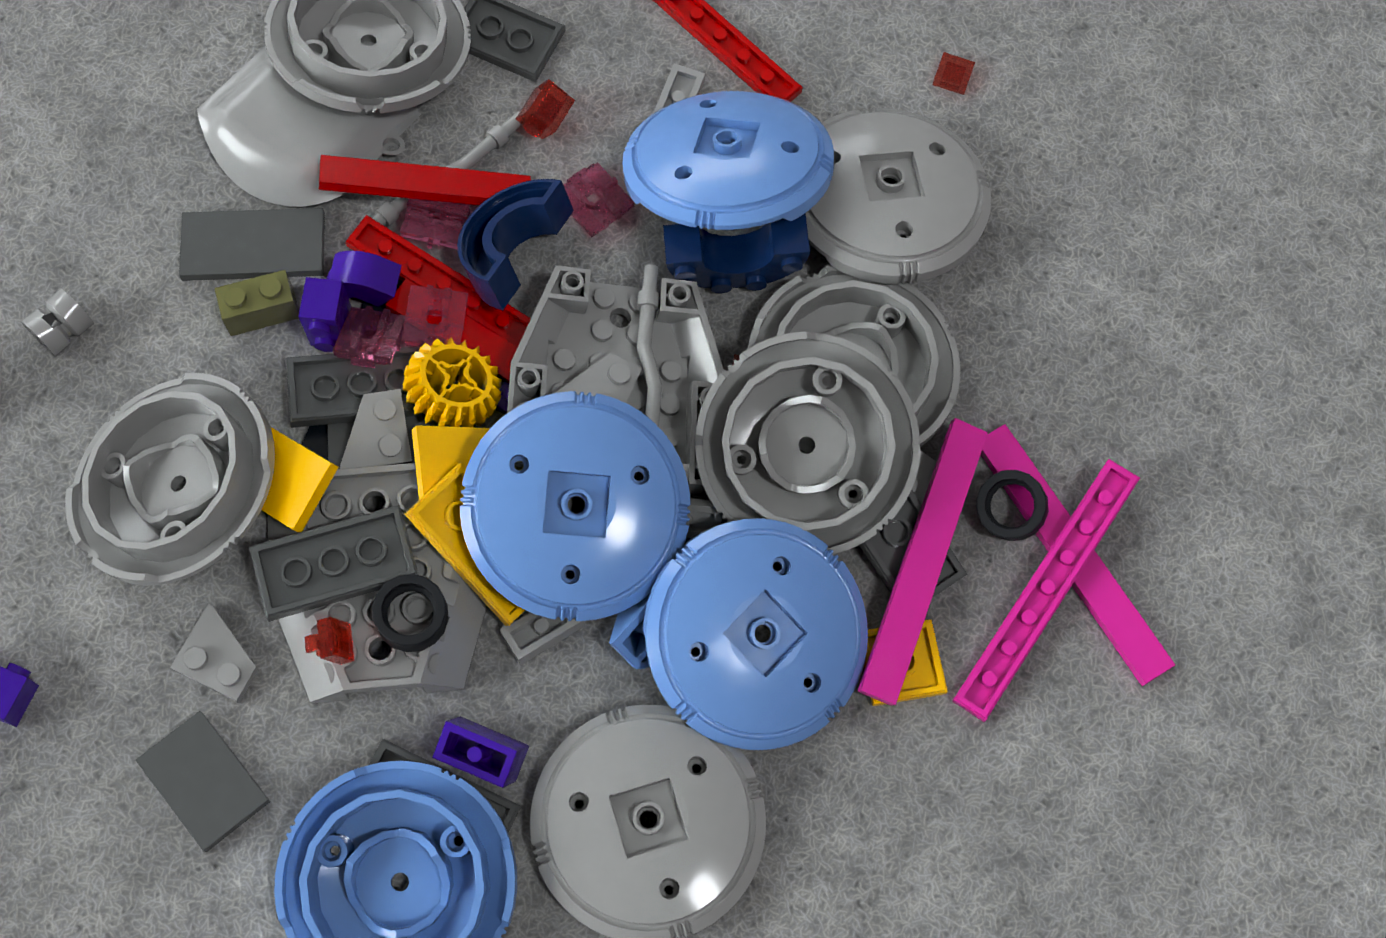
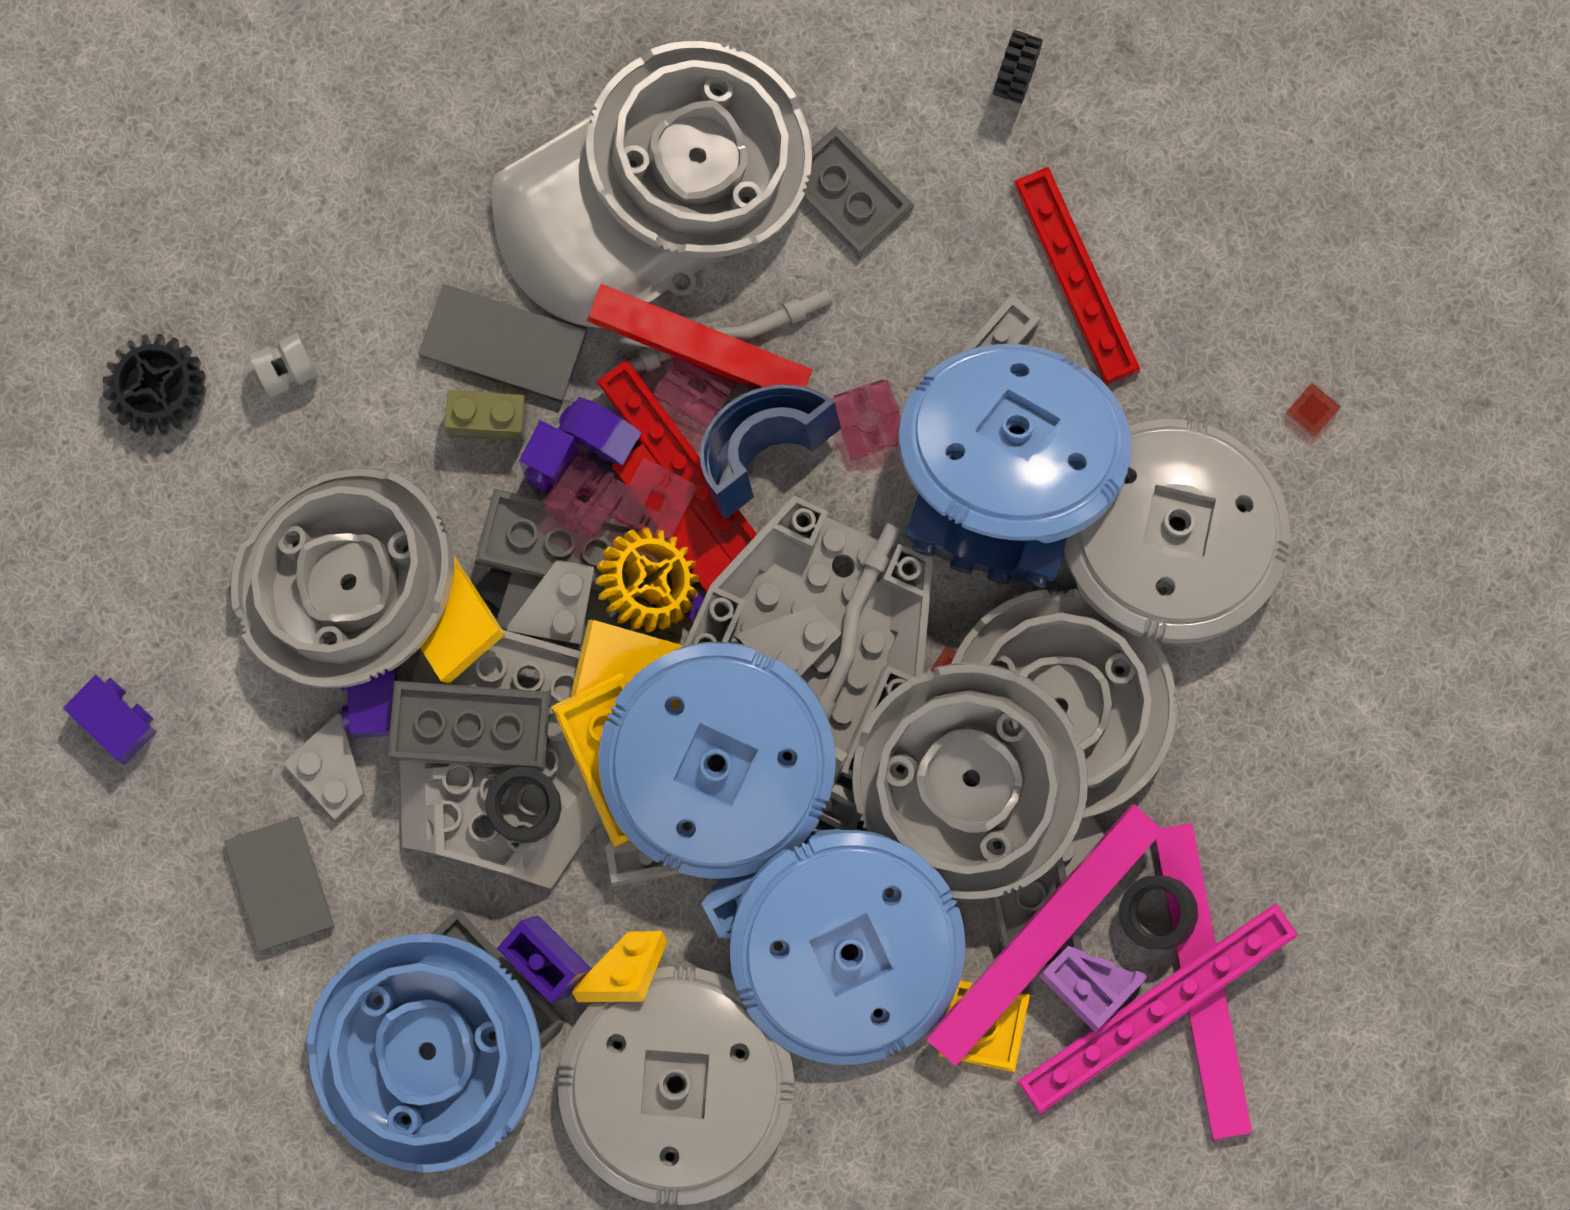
camera: 30 degrees right, 10 degrees up
(234, 583) = (370, 706): none -> dark purple brick
(332, 641) = (441, 806): clear red tile -> none
(545, 110) = (853, 302): clear red brick -> none
(560, 734) = (625, 970): none -> yellow wing
(981, 589) = (1090, 985): none -> medium lavender wing

